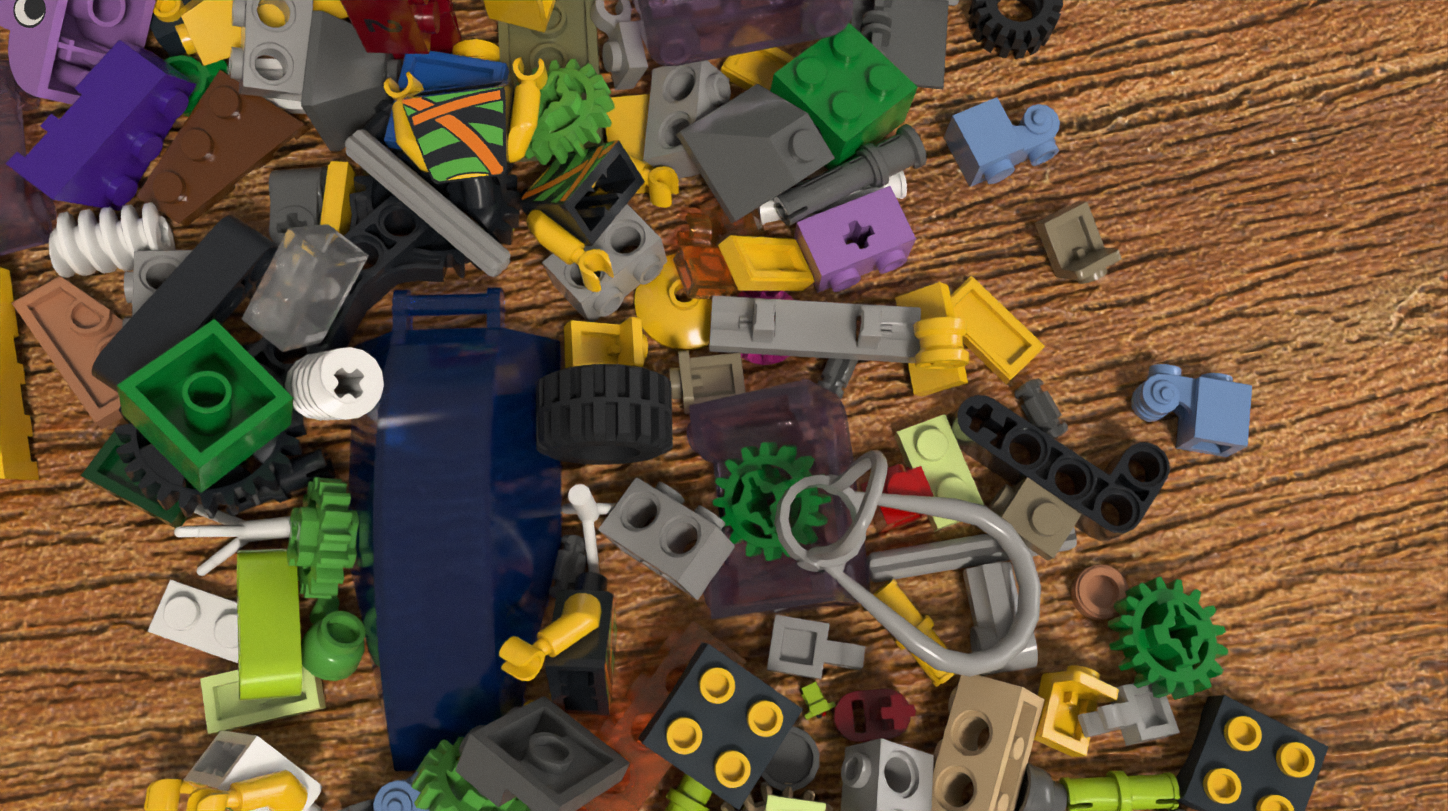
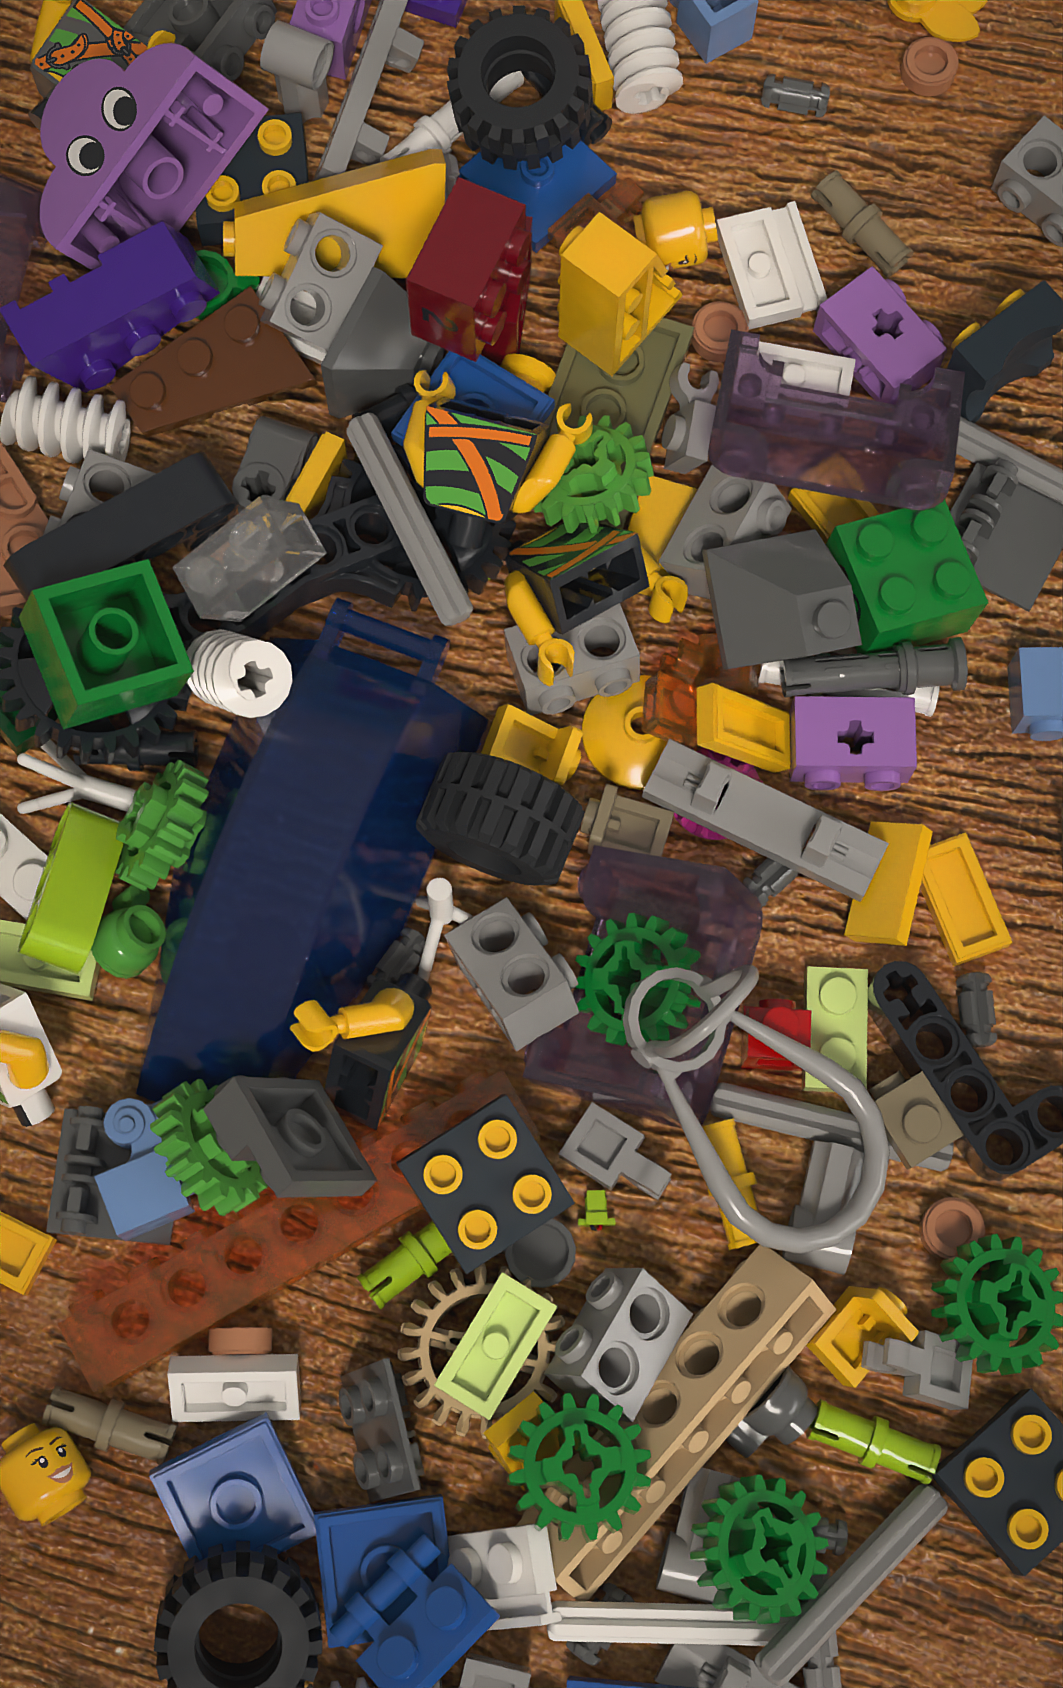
camera: 25 degrees right, 0 degrees up
(885, 714) = (662, 1251): dark red piece -> none
(941, 343) = (890, 890): yellow wheel -> none

